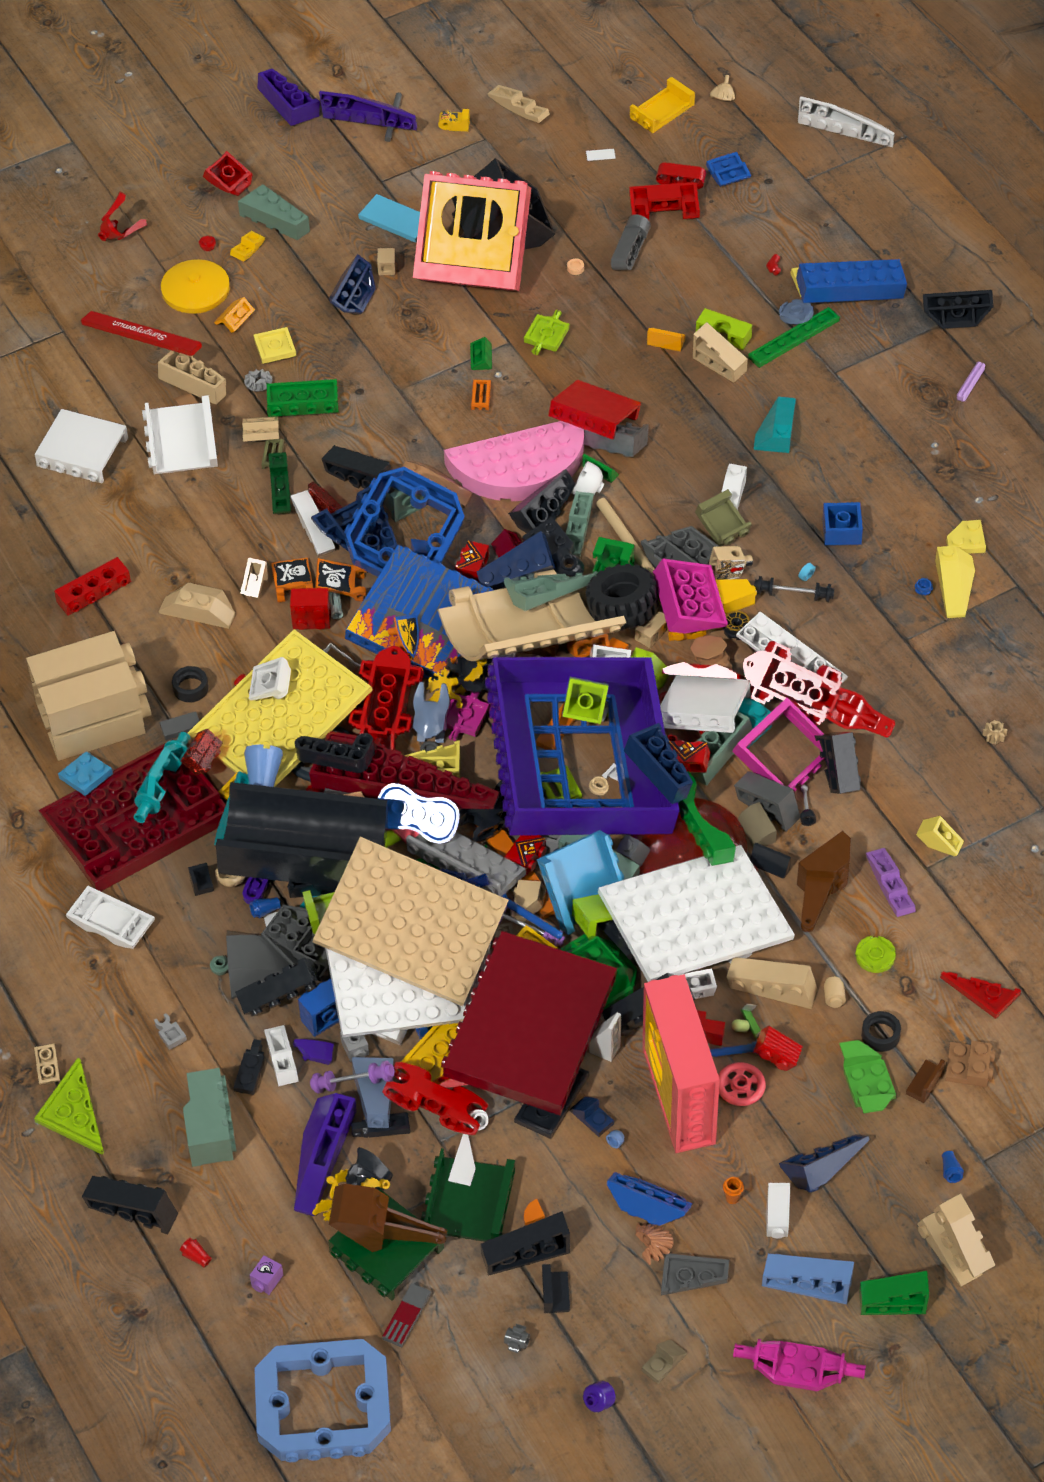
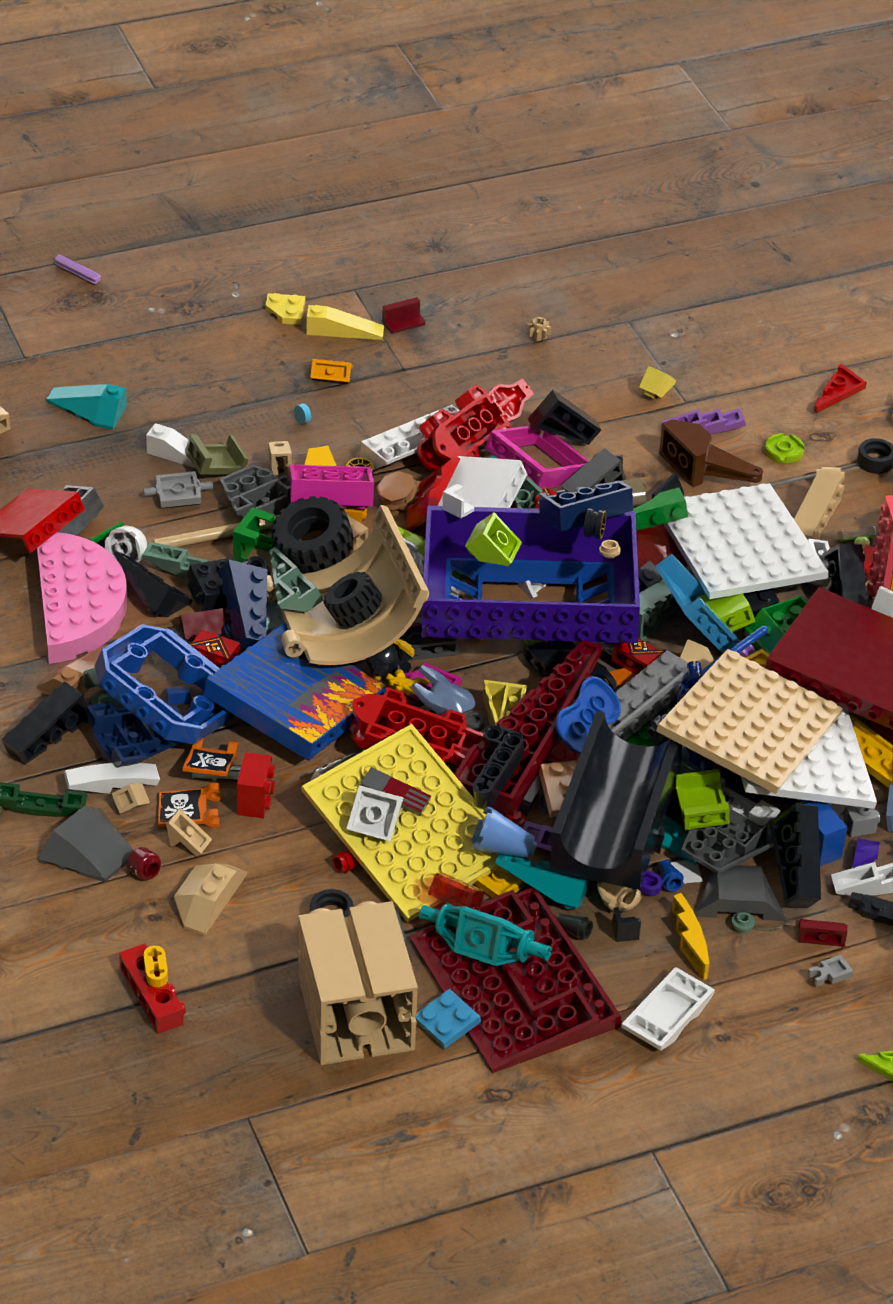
camera: 85 degrees left, 10 degrees down
(47, 1064) = (869, 1086): tan slope -> none
(101, 578) = (160, 965): none -> yellow beam
(190, 929) = (692, 938): none -> yellow slope
(196, 846) = (576, 925): none -> pearl dark grey cone
(218, 1024) = (822, 932): none -> dark red panel
(220, 559) = (143, 863): none -> dark red head
(241, 525) = (88, 845): none -> dark grey wedge
(292, 539) = (130, 797): none -> tan panel
(298, 691) = (413, 799): none -> tile
(322, 498) = (89, 756): clear red bracket -> none
(408, 633) = (332, 694): shield -> none
(513, 622) = (352, 599): none -> black tyre
(630, 770) = (594, 523): none -> black wheel
(650, 673) = (454, 502): none -> white panel
(676, 503) = (178, 489): none -> light grey plate
(768, 586) = (331, 410): black axle -> none
(842, 523) = (250, 376): blue brick -> none
(880, 583) = (331, 370): none -> light orange panel
(923, 586) = (343, 343): blue plate -> none
(981, 626) = (402, 315): none -> dark red panel

